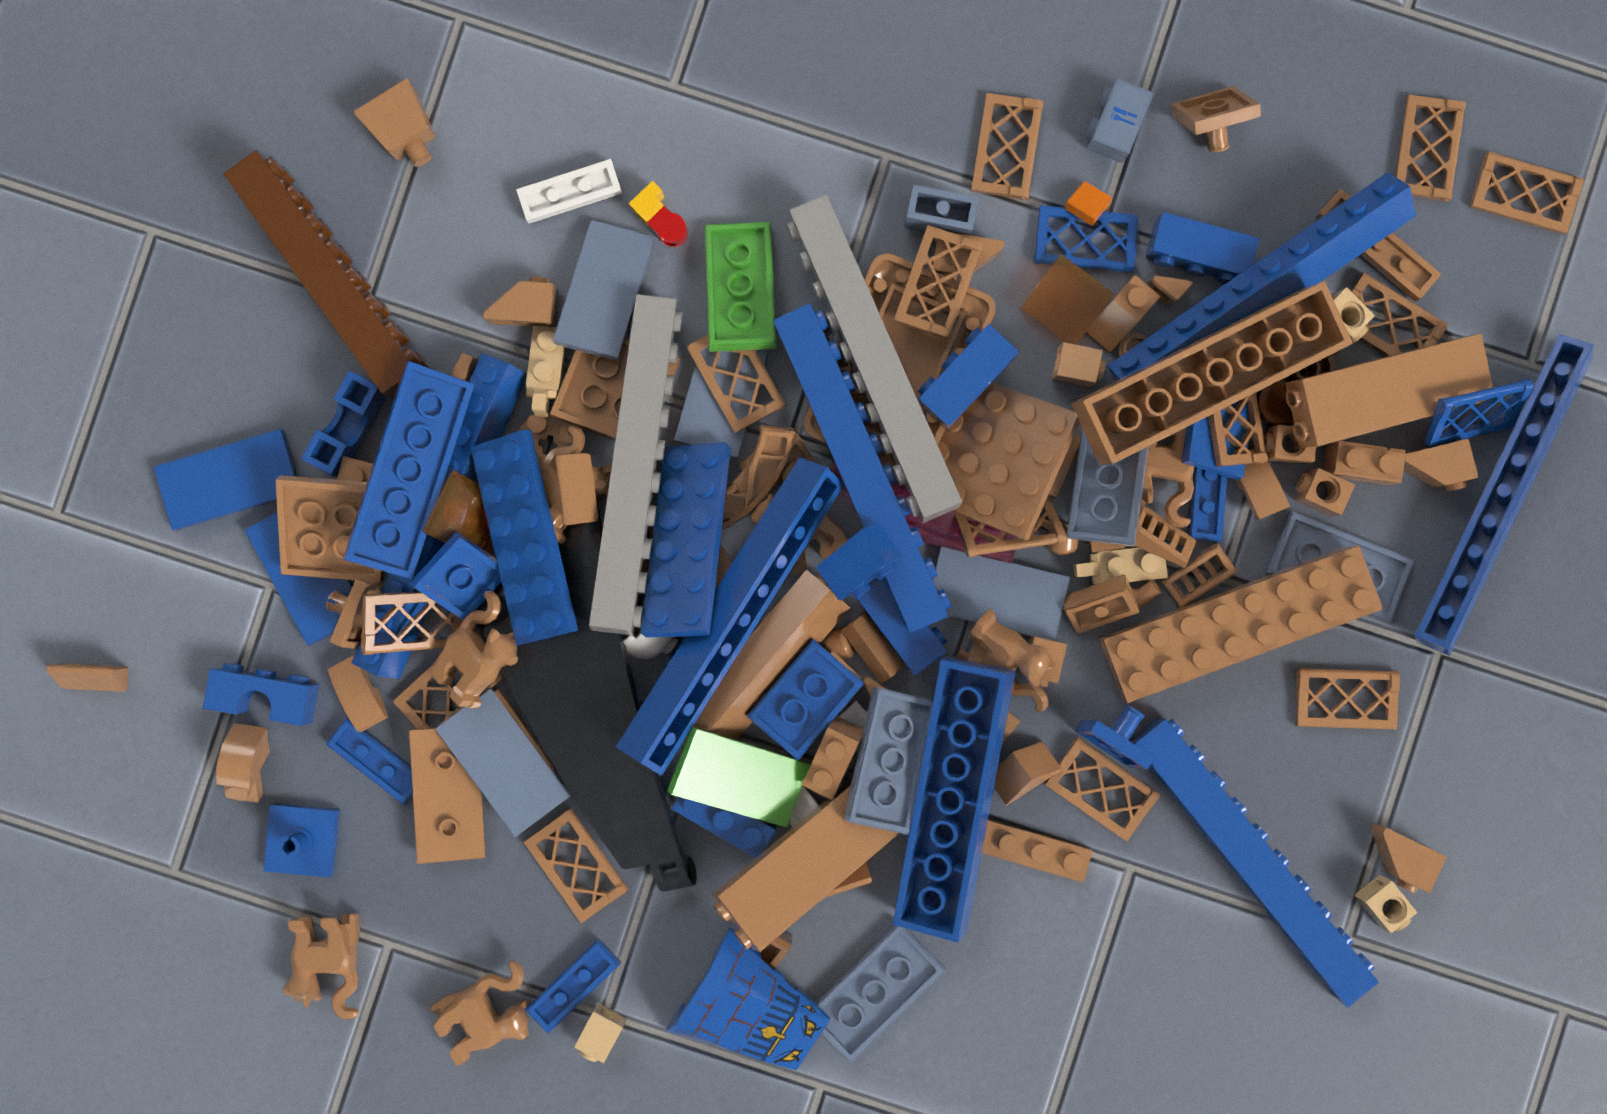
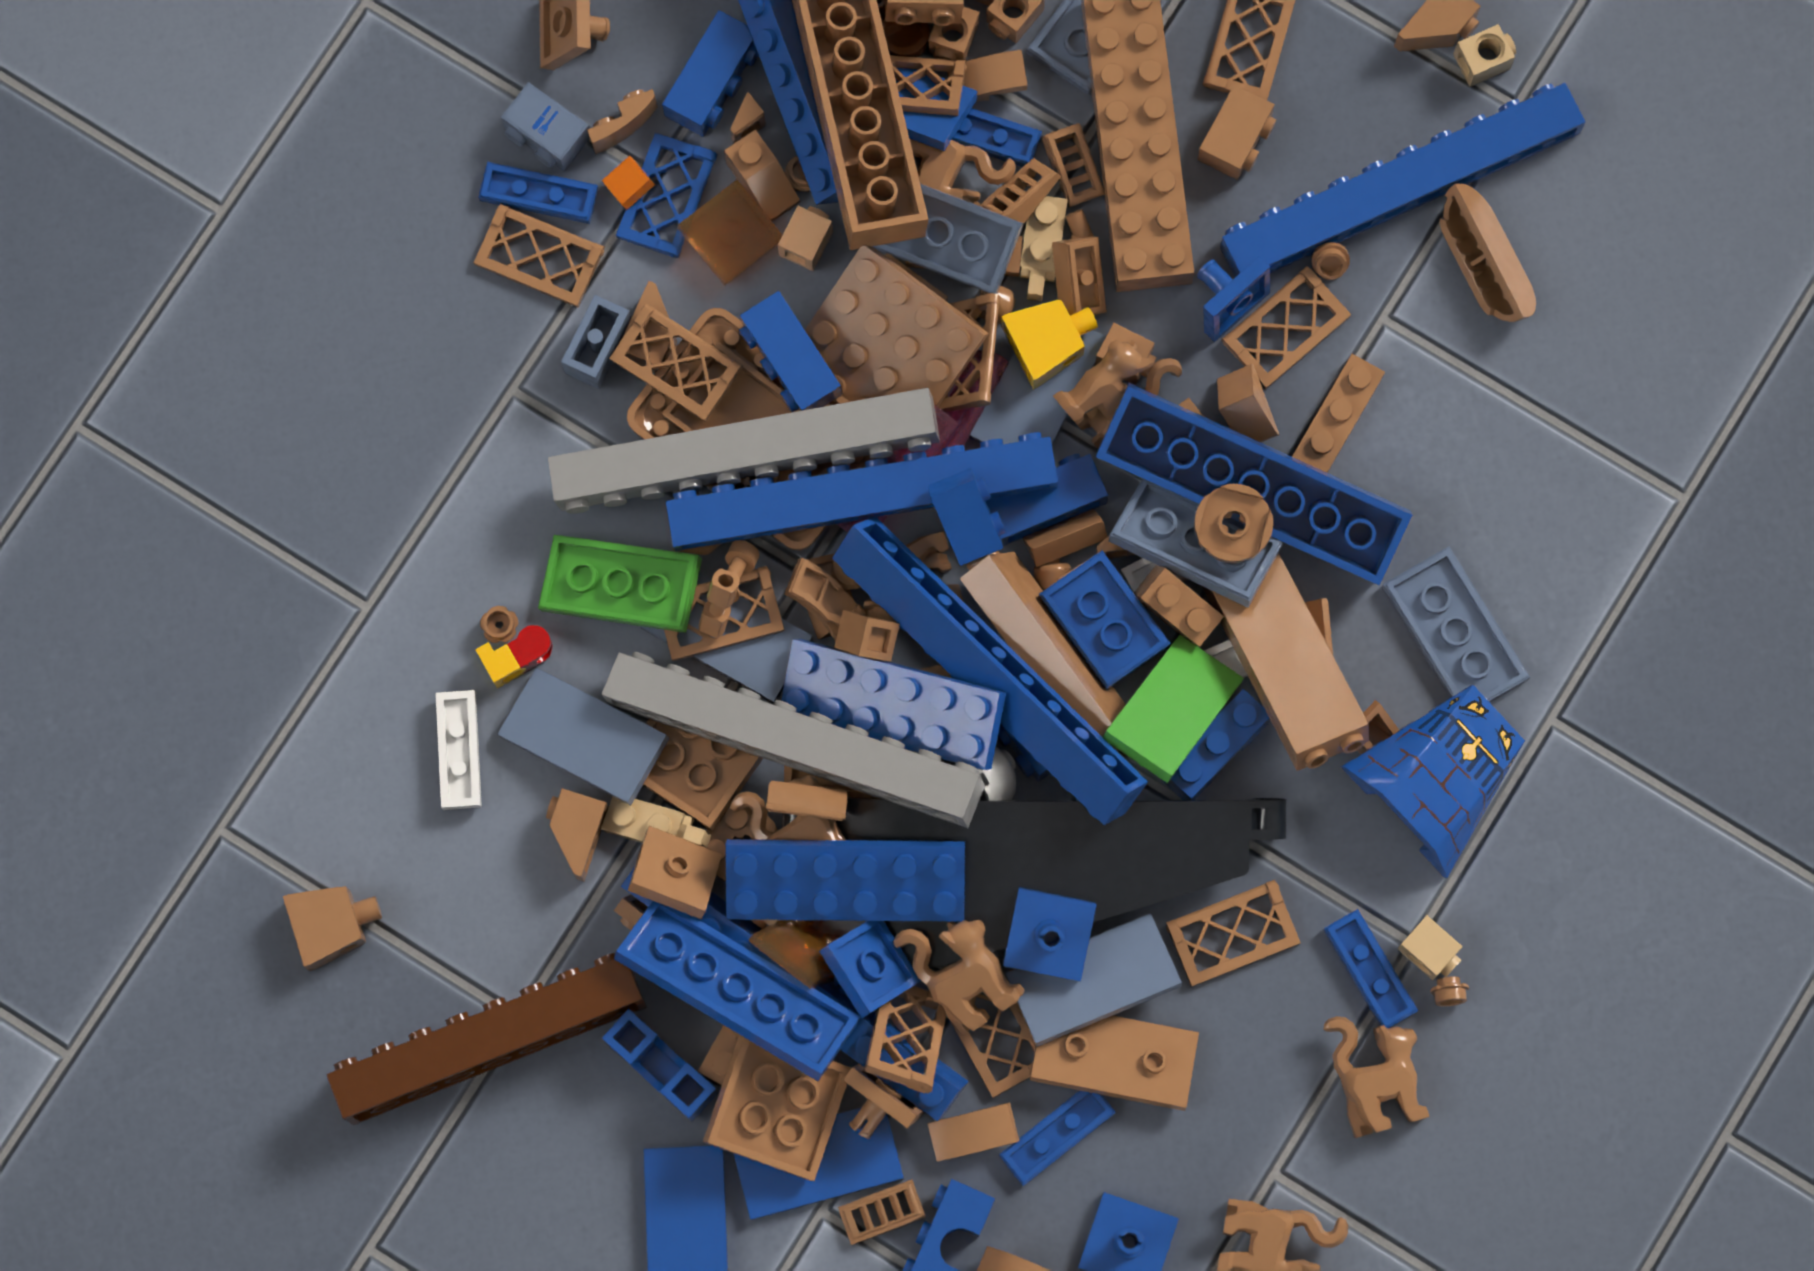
camera: 75 degrees left, 10 degrees down
(272, 651) = (912, 1198): none -> medium nougat slope
(498, 394) = (675, 872): none -> medium nougat plate
(525, 719) = (1049, 934): none -> blue tile
(569, 1057) = (1449, 991): none -> medium nougat plate
(683, 188) = (495, 615): none -> medium nougat plate
(739, 503) = (867, 635): none -> medium nougat brick
(748, 372) = (724, 587): none -> medium nougat bar
(925, 805) = (1253, 512): none -> medium nougat plate
(1039, 591) = (1047, 338): none -> yellow torso
(1061, 131) = (538, 192): none -> blue tile
(1151, 192) = (634, 112): none -> medium nougat slope
(1169, 814) = (1330, 260): none -> medium nougat plate
(1206, 946) = (1486, 255): none -> medium nougat brick
(1262, 707) = (1236, 132): none -> medium nougat brick

